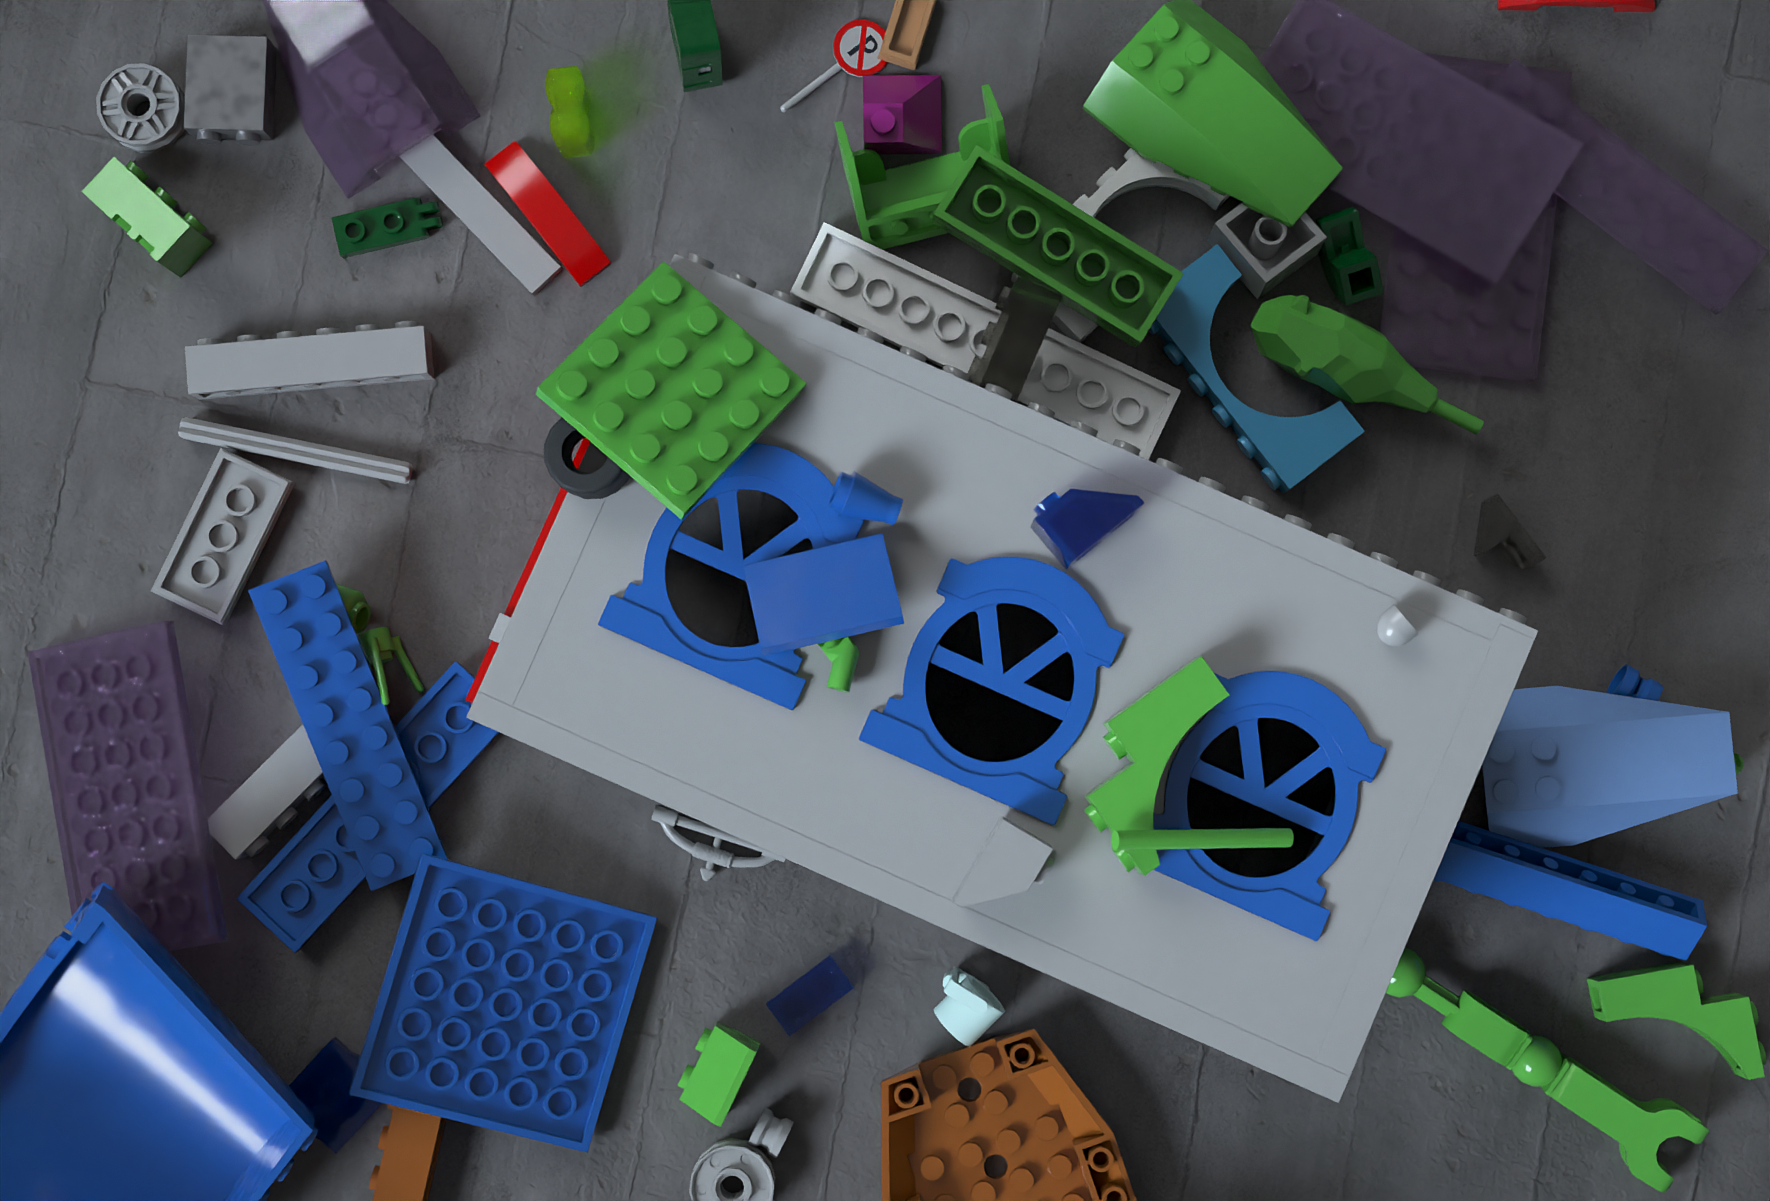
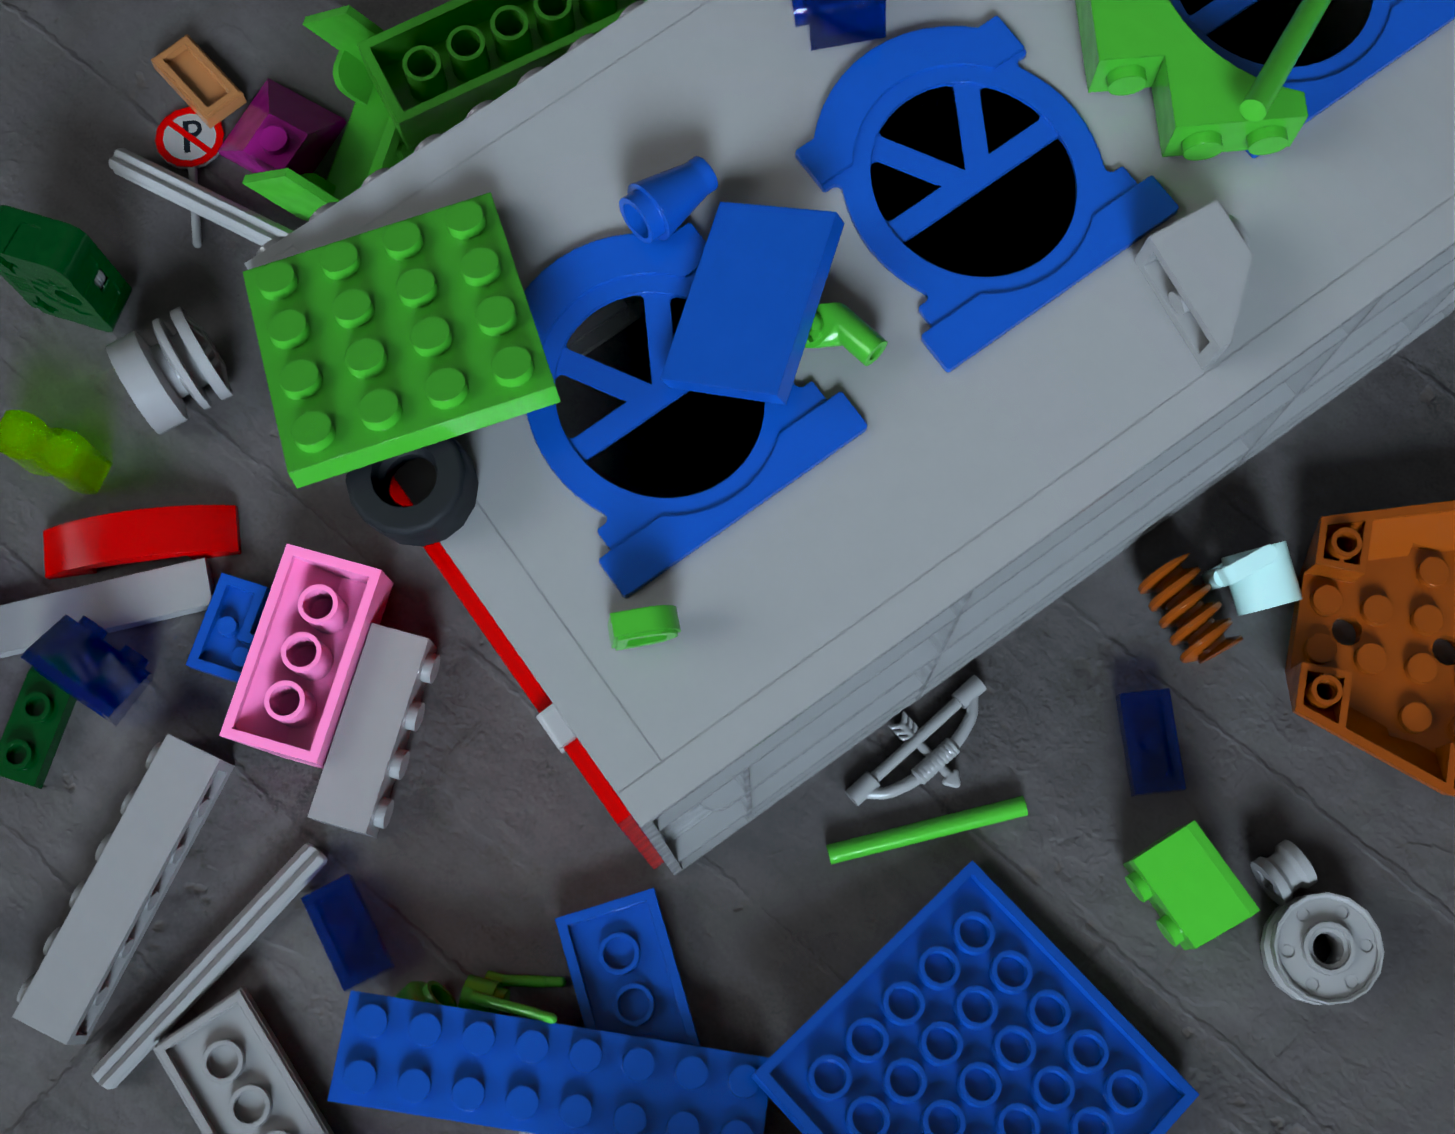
camera: 50 degrees left, 10 degrees down
(367, 528) = (347, 932): none -> clear blue plate
(435, 245) = (89, 667): none -> clear blue slope
(490, 467) = (375, 730): none -> light grey brick
(496, 390) = (305, 655): none -> bright pink slope
(509, 324) = (228, 627): none -> blue plate
(580, 650) = (643, 626): none -> bright green tile
(662, 875) = (926, 830): none -> bright green bar
(679, 162) = (169, 370): none -> light grey wheel
(815, 118) = (195, 197): none -> light grey axle
(917, 973) = (1188, 611): none -> dark orange piece

